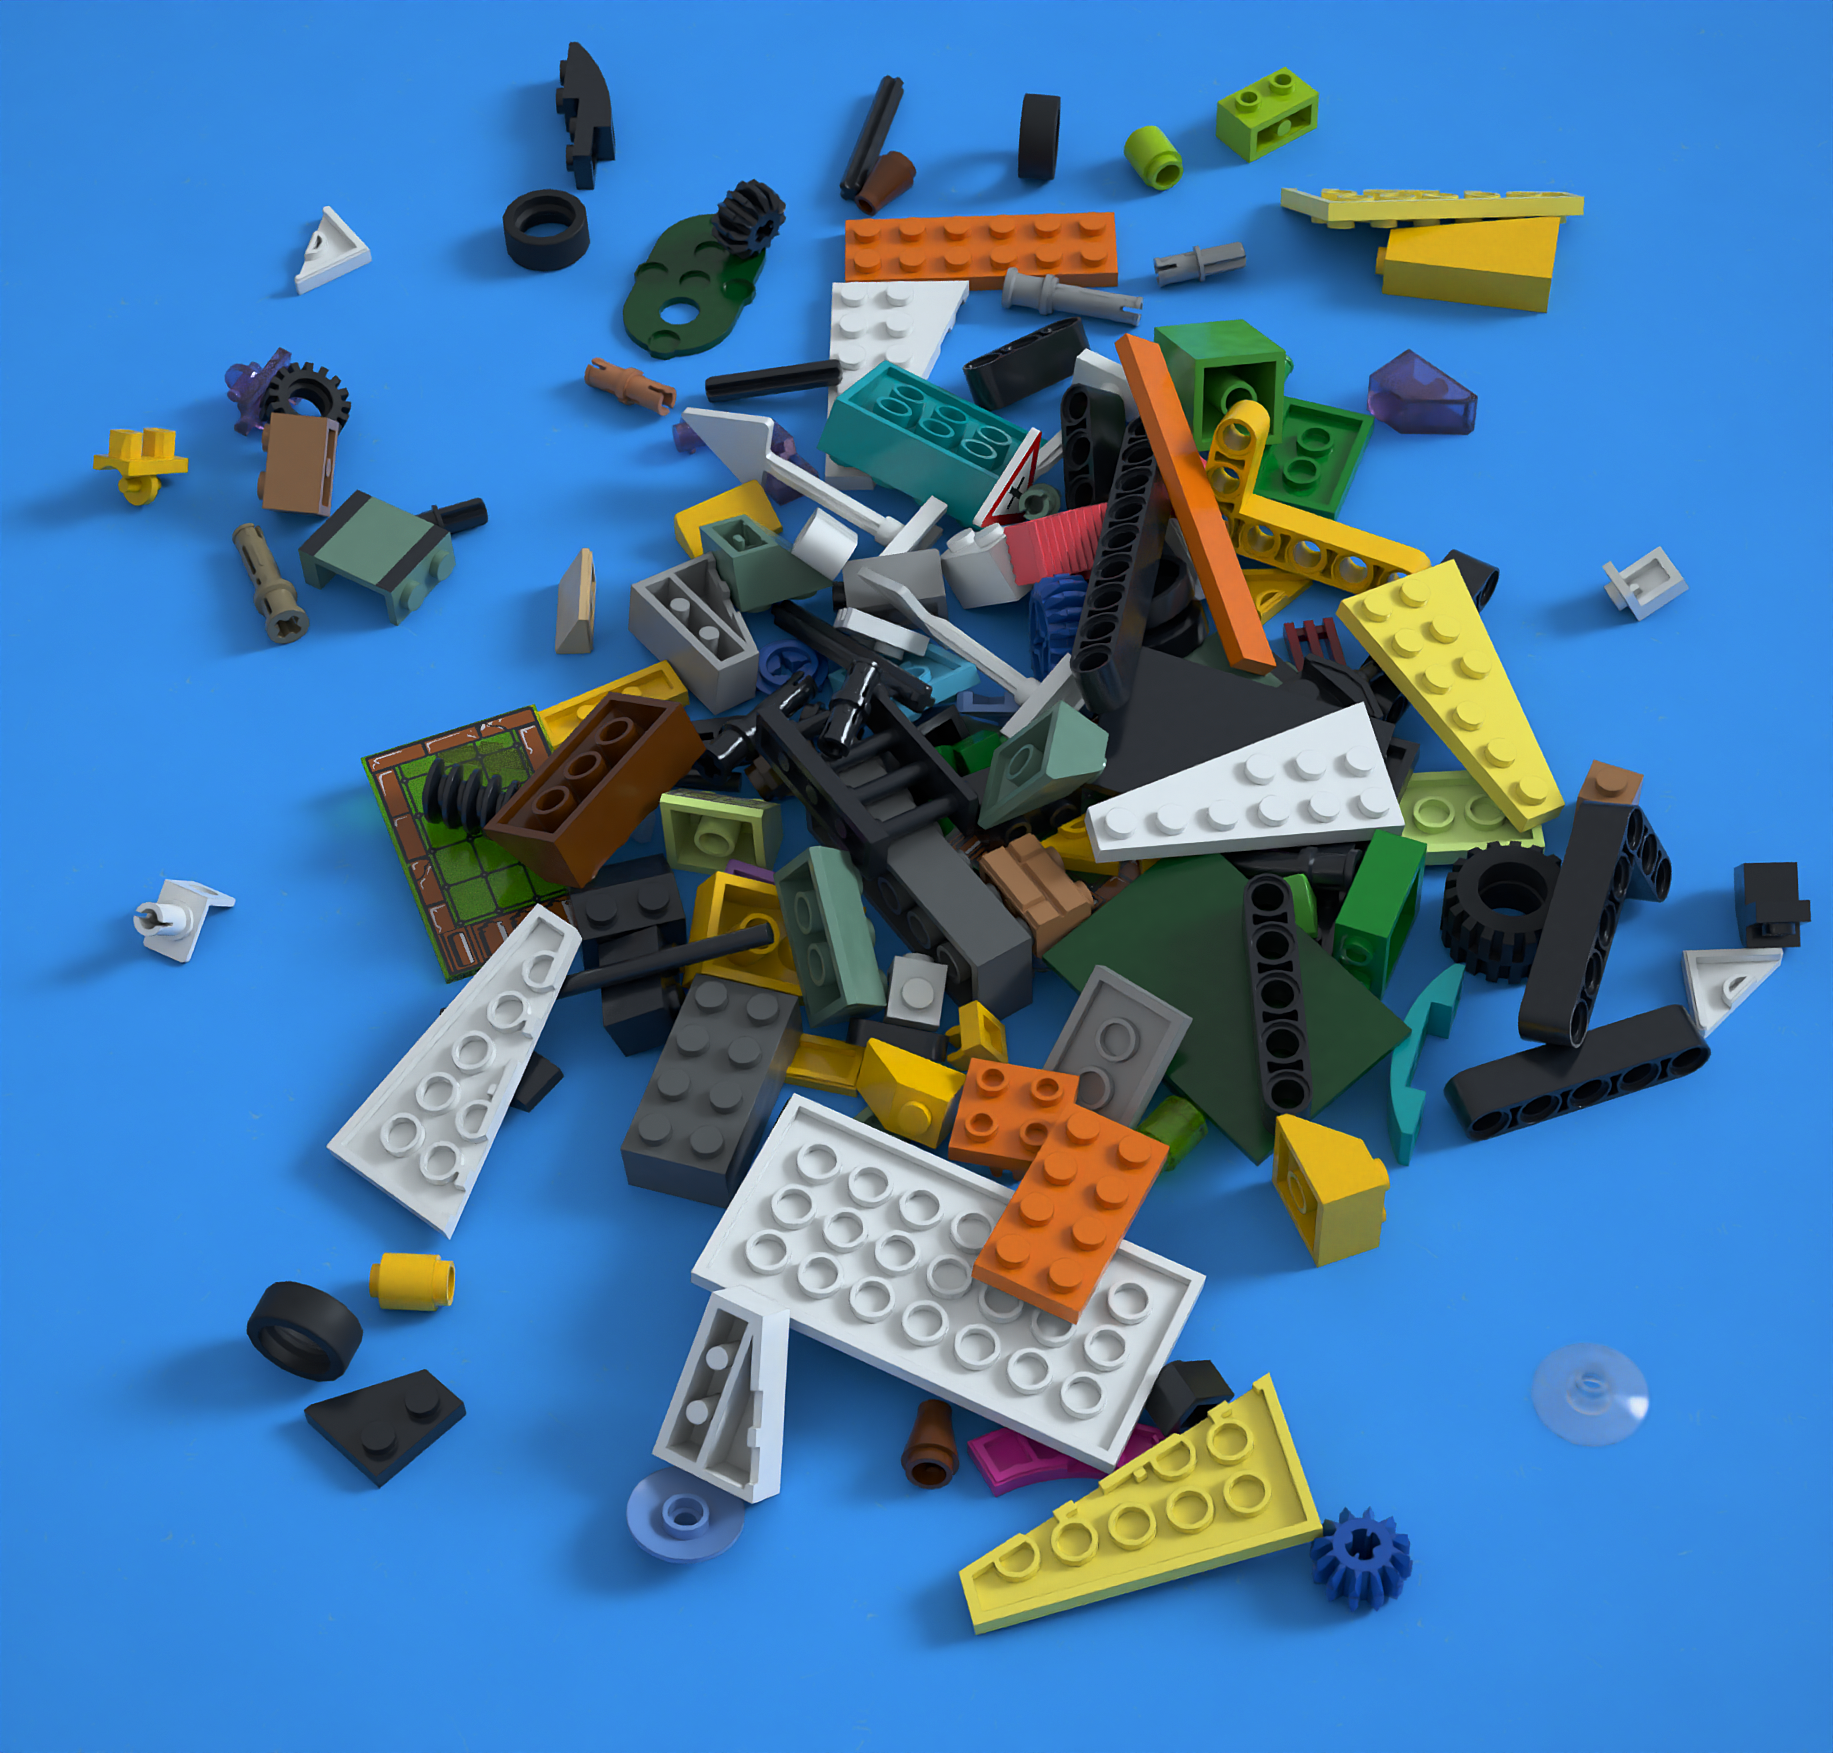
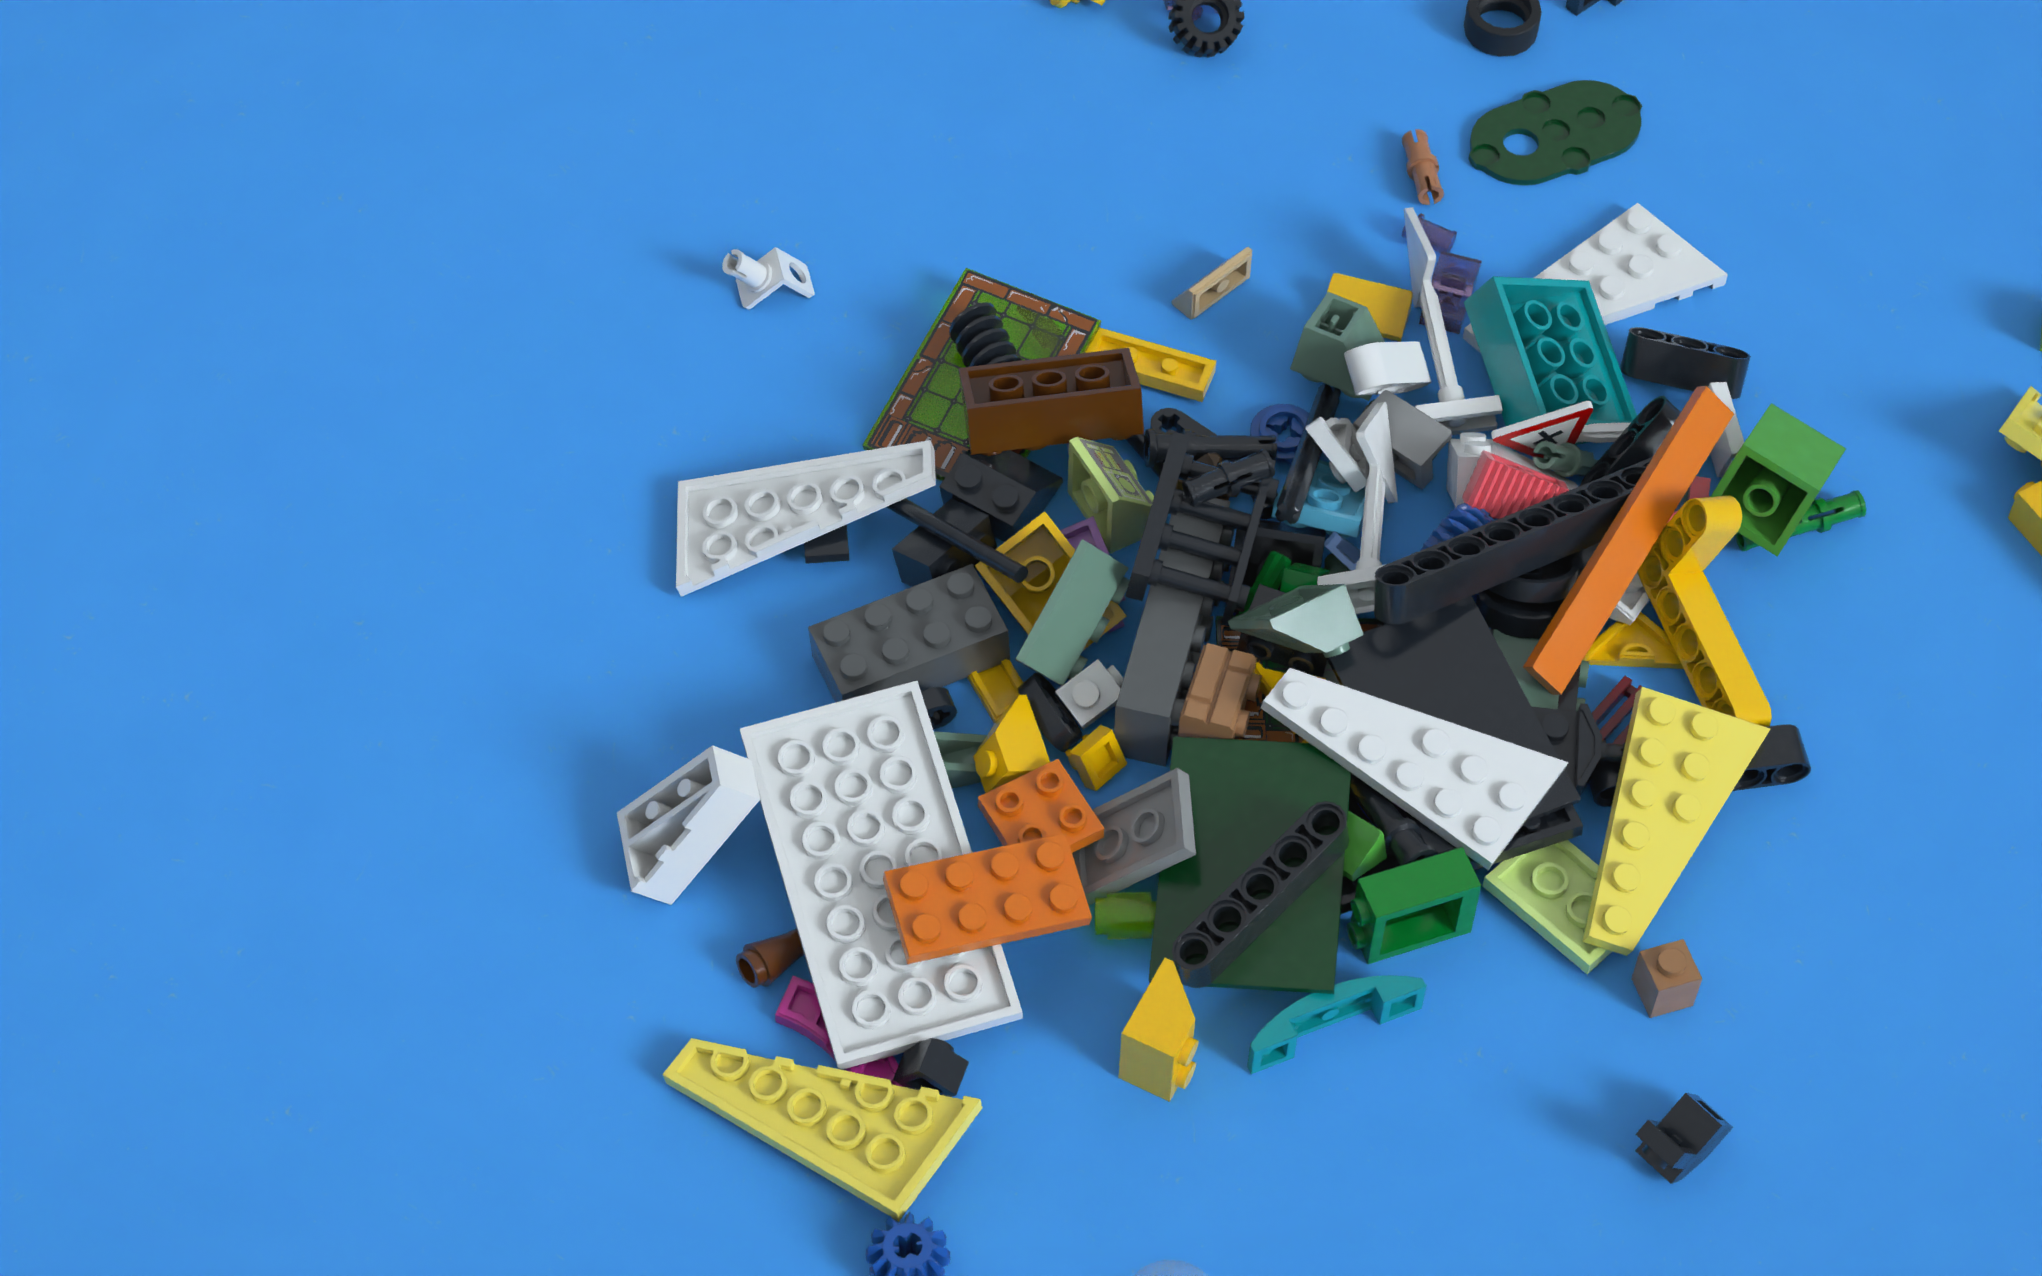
camera: 45 degrees right, 5 degrees up
(273, 595) = (1051, 125): dark tan pin -> none
(298, 464) = (1153, 53): medium nougat brick -> none
(304, 1331) = (535, 573): black tyre -> none
(381, 551) = (1137, 151): sand green panel -> none
(387, 1422) = (528, 667): black wing -> none
(412, 1281) = (628, 600): yellow brick -> none
(458, 516) = (1200, 159): black axle -> none
(676, 1499) = (589, 849): medium blue dish -> none
(693, 625) = (1252, 358): light grey wedge -> none
(748, 219) = (1625, 113): black gear -> none
(773, 380) = (1512, 237): black axle -> none
(872, 136) = (1796, 124): black axle -> none
(887, 181) = (1761, 162): reddish brown cone -> none
(982, 248) = (1770, 264): orange plate -> none
(1039, 136) = (1895, 212): black tyre -> none
(1050, 295) = (1768, 329): light grey pin -> none
(1154, 157) = (1965, 291): lime brick -> none
(1199, 263) = (1899, 391): light grey axle -> none
(1315, 457) = (1791, 589): green plate -> none
(1420, 398) = (1919, 607): clear purple slope -> none
(1493, 880) = (1513, 950): black tyre -> none
(1565, 1079) = (1419, 1118): black beam -> none
(1607, 860) = (1526, 1019): black beam -> none
(1645, 584) = (1898, 865): white bracket -> none
(1722, 980) = (1594, 1155): white tile -> none

